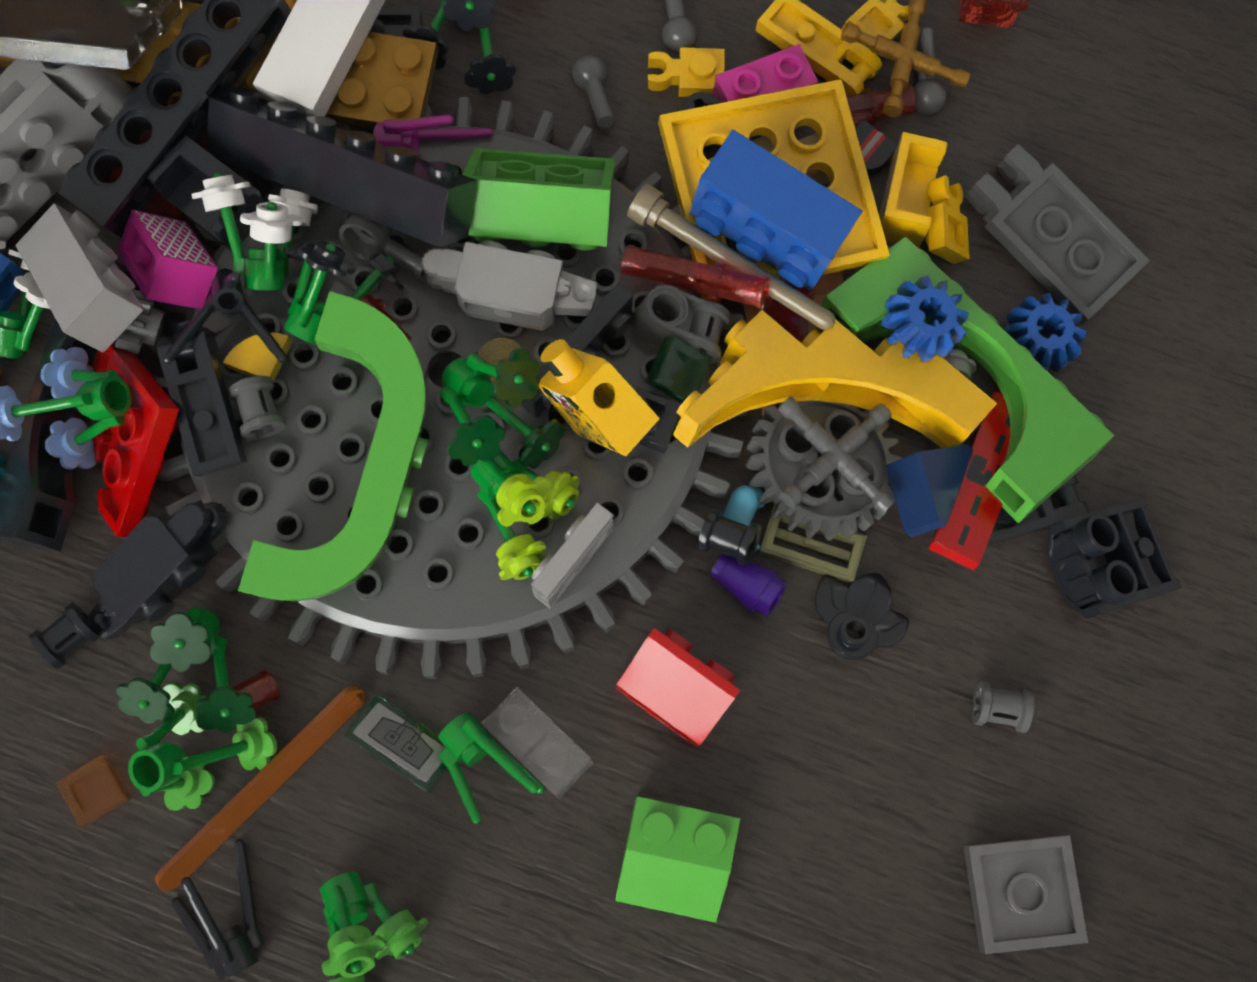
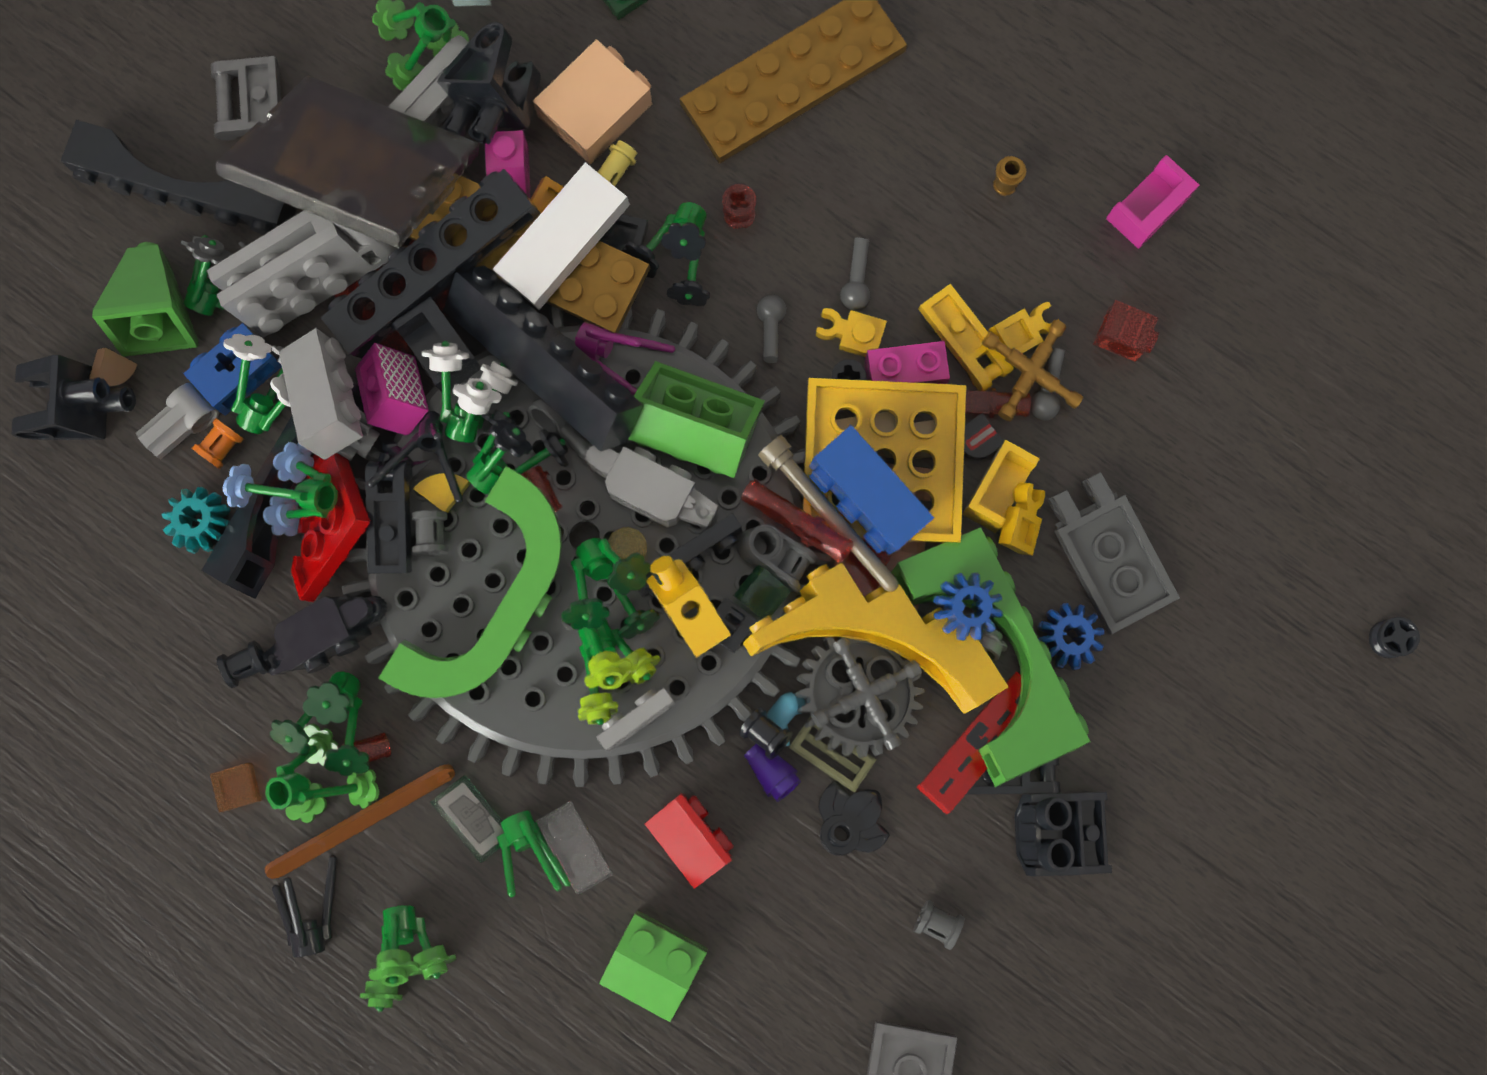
camera: 20 degrees right, 5 degrees up
(928, 486) = (933, 737): dark blue slope -> none

